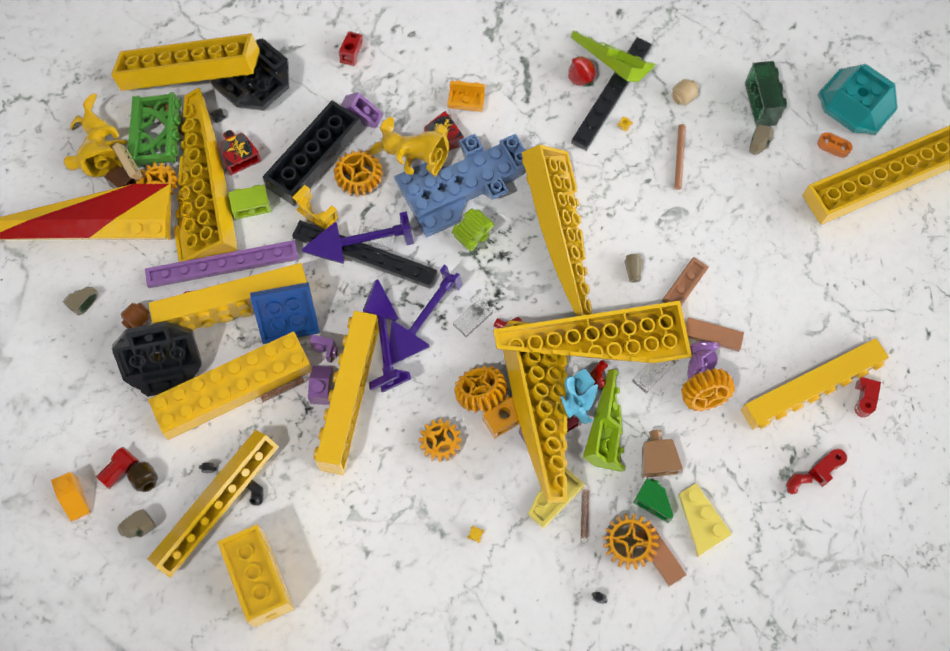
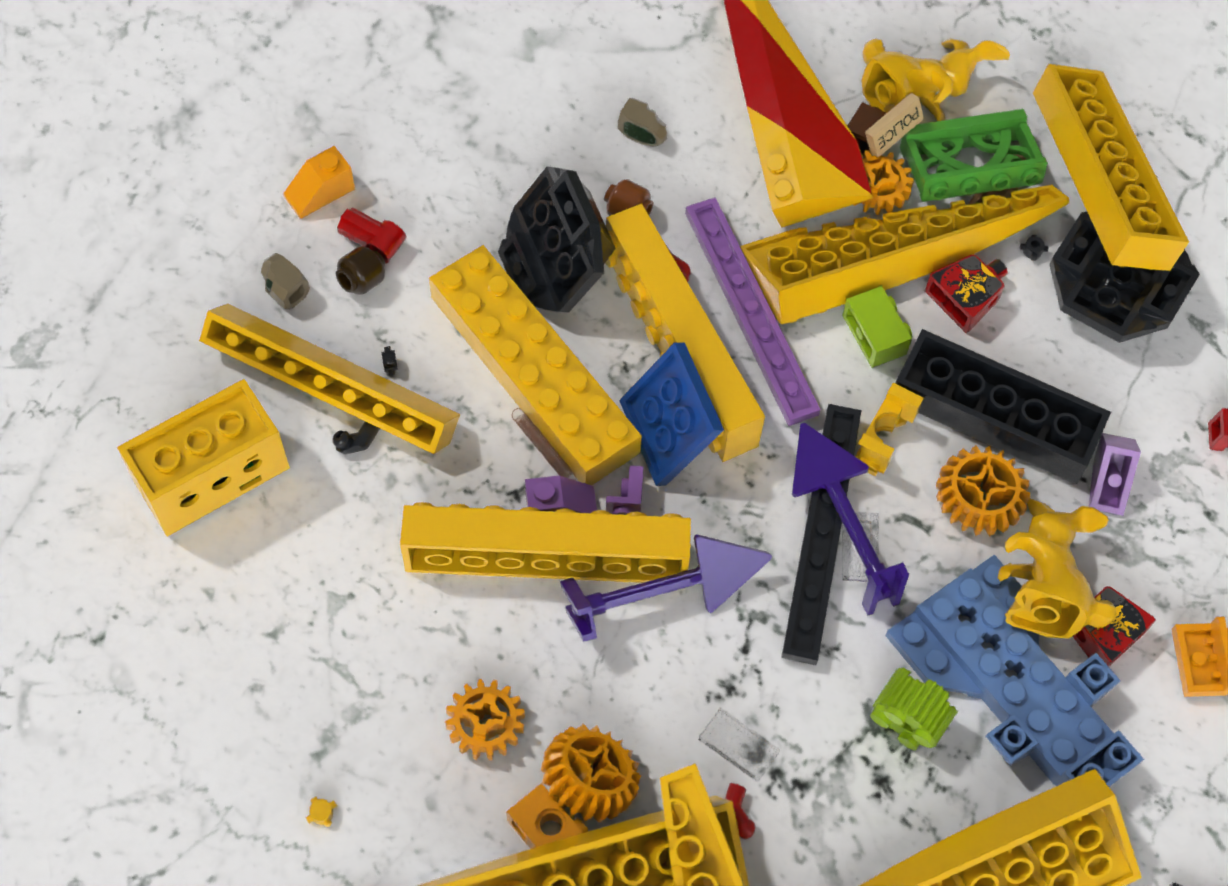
camera: 80 degrees right, 5 degrees down
(404, 342) = (665, 628): dark purple piece -> none

